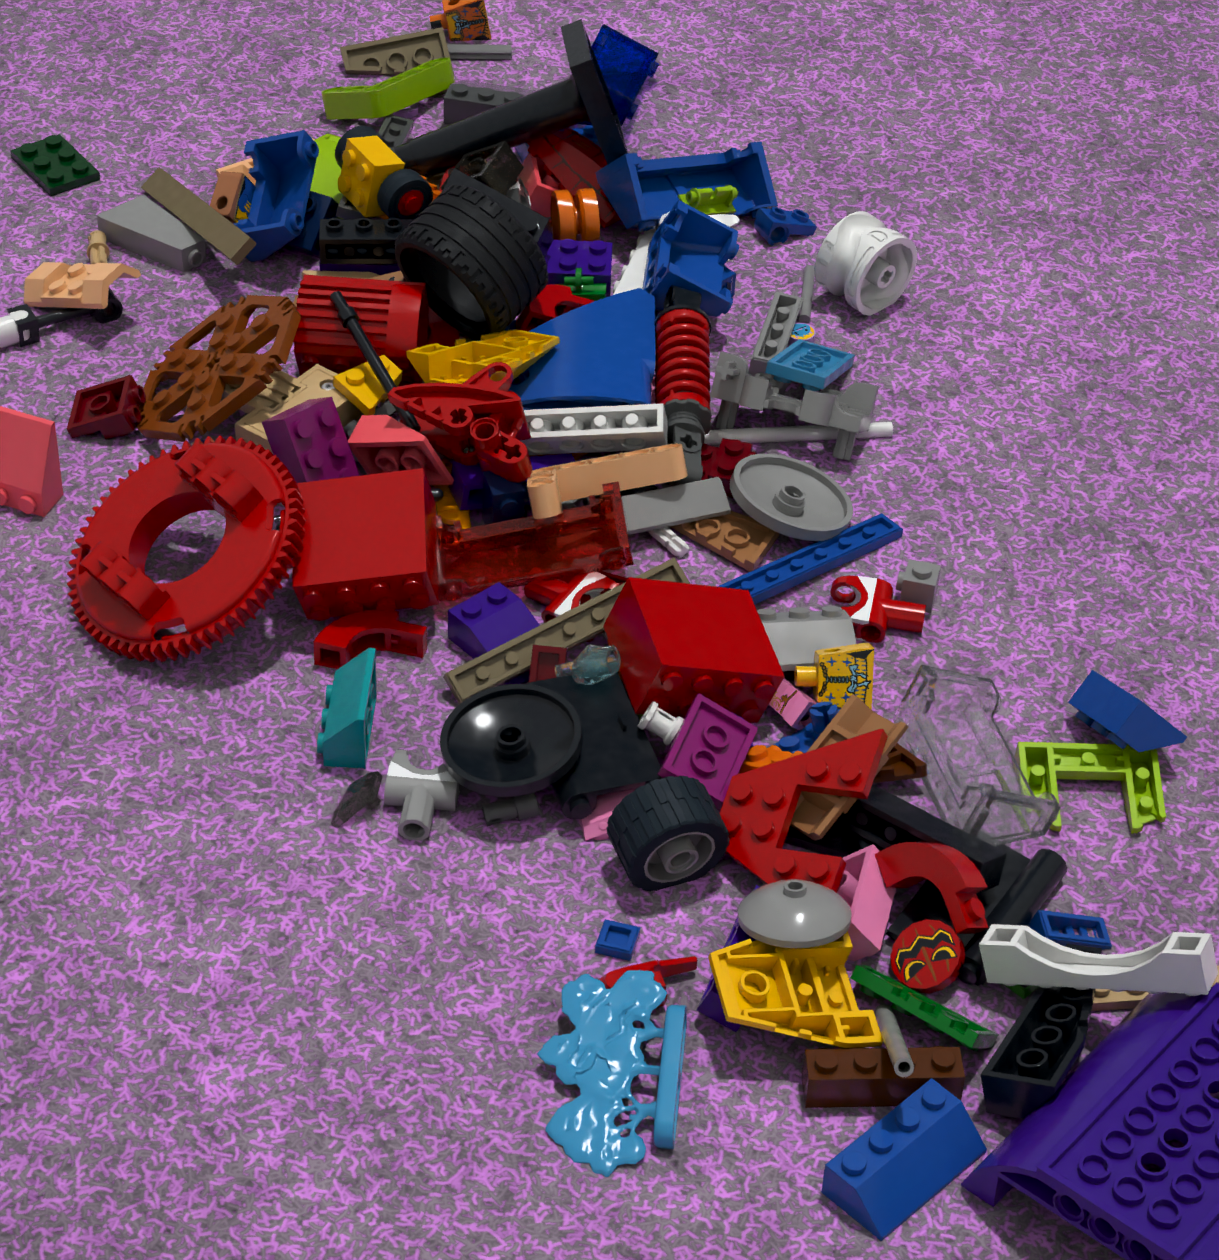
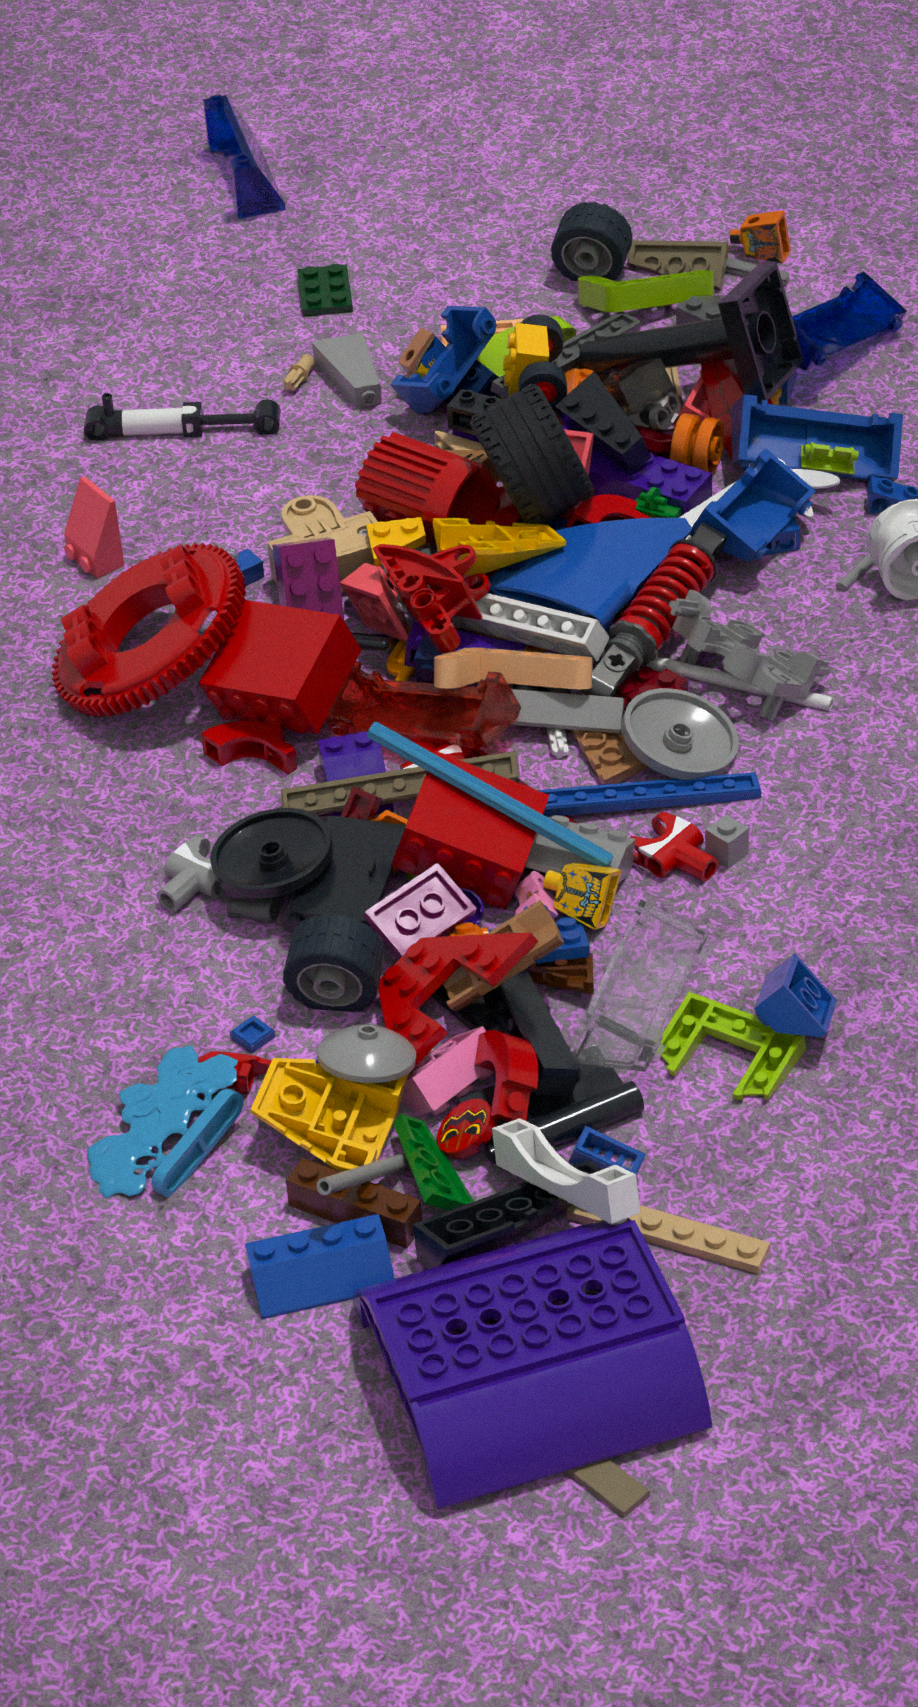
camera: 35 degrees right, 0 degrees up
(75, 285) = (245, 393): light nougat piece -> none
(107, 408) = (202, 505): dark red plate -> none
(199, 216) = (386, 362): dark tan tile -> none
(228, 360) = (286, 495): dark orange plate -> none
(313, 55) = (591, 242): none -> black wheel
(349, 713) = (189, 799): teal slope -> none
(350, 320) = (397, 479): black bar -> none
(358, 794) = (151, 859): clear smoke piece -> none
(591, 665) = (383, 816): clear light blue piece -> none
(660, 723) = (395, 874): white bush -> none
(706, 605) = (489, 795): none -> dark azure axle
(775, 330) = (797, 591): light grey slope -> none
(803, 332) = (824, 600): tile -> none
(809, 364) = (793, 626): dark azure plate -> none

